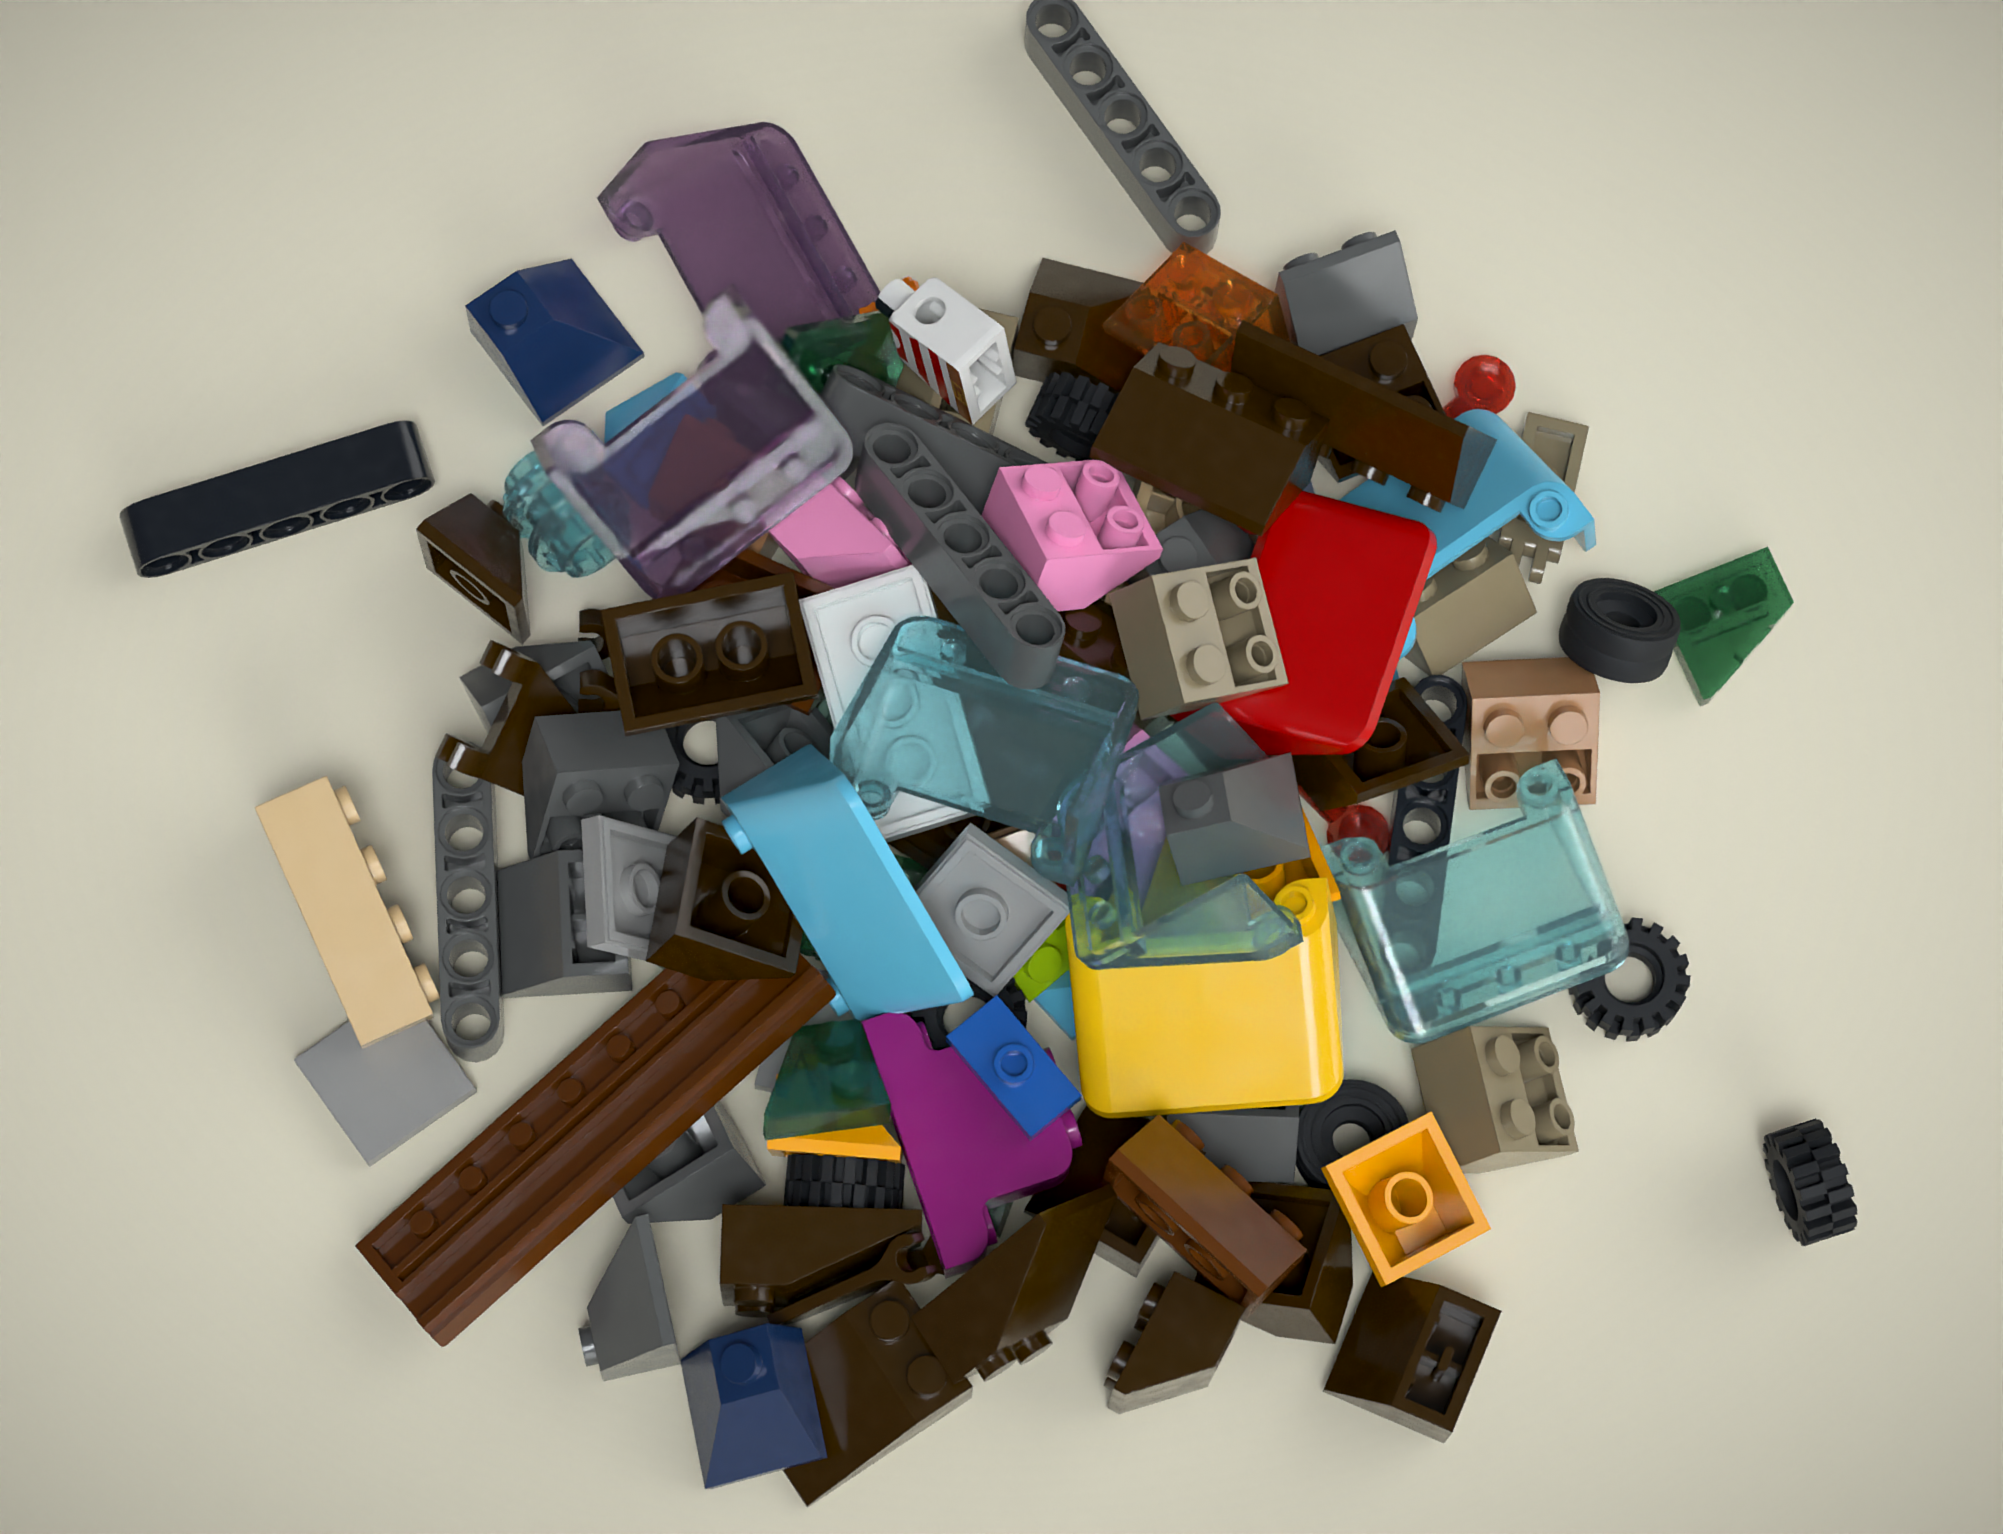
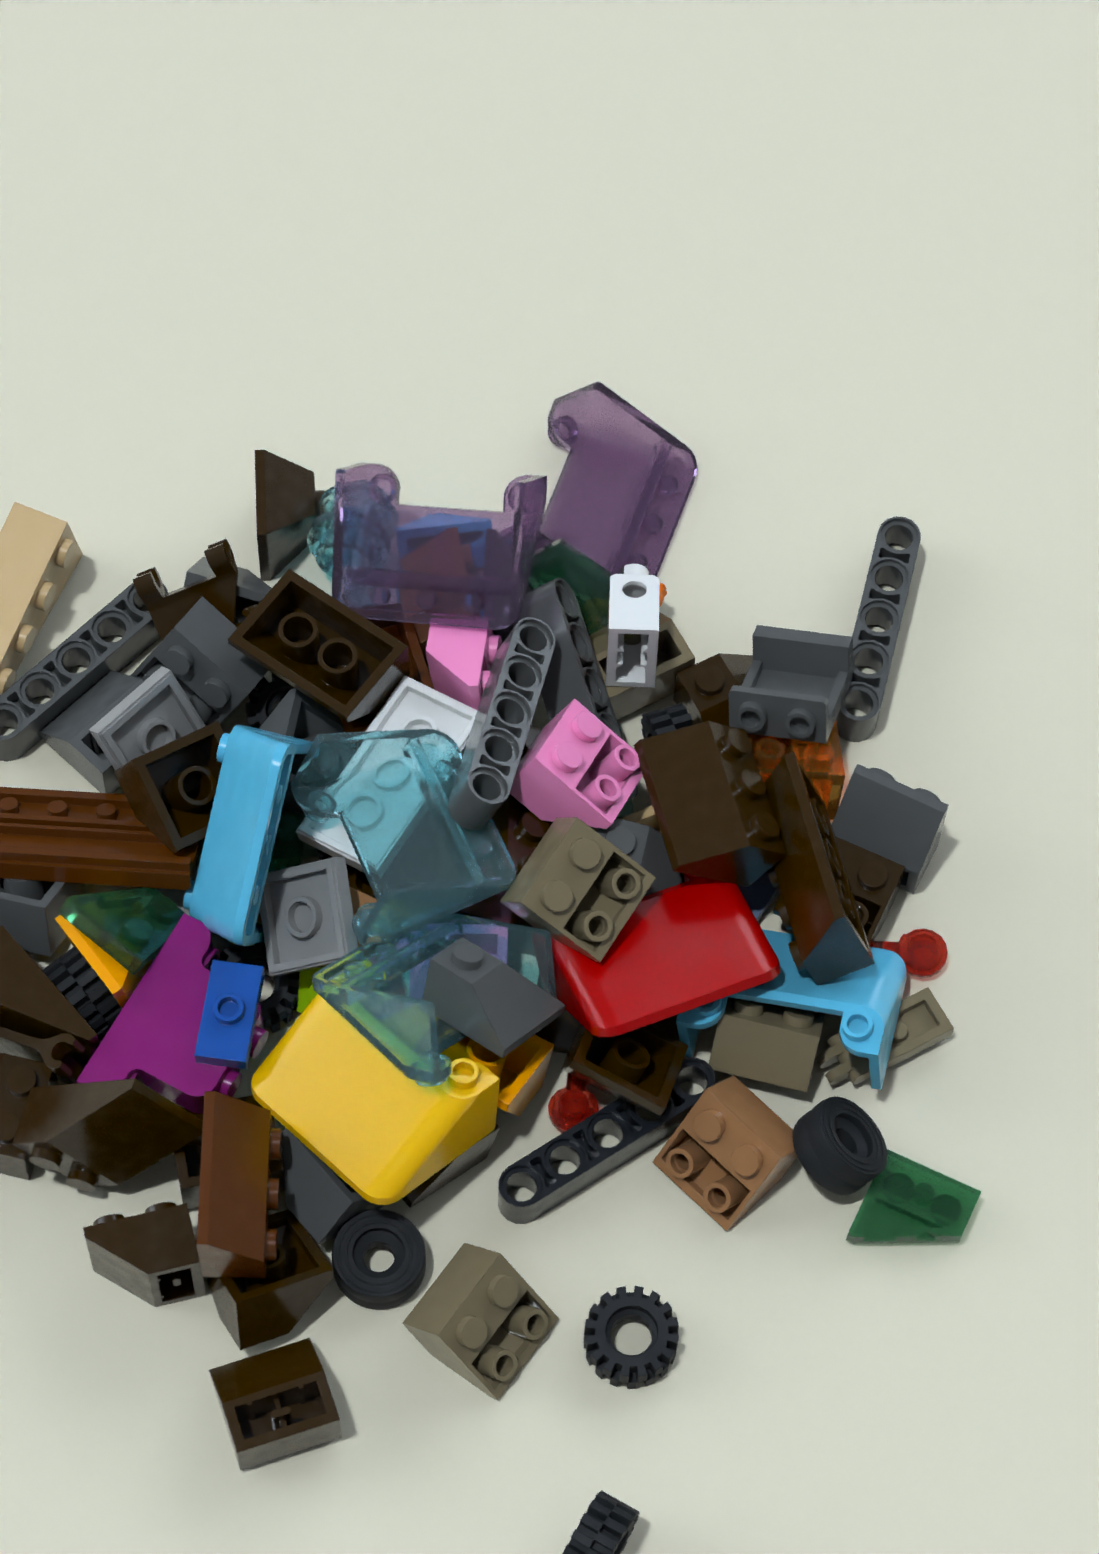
camera: 50 degrees right, 10 degrees down
(276, 499) = (222, 388): black beam -> none
(551, 336) = (453, 444): dark blue slope -> none
(1136, 257) = (793, 684): none -> dark grey panel
(1406, 1199) = (357, 1307): light orange slope -> none
(1481, 917) = (583, 1209): clear light blue windscreen -> none

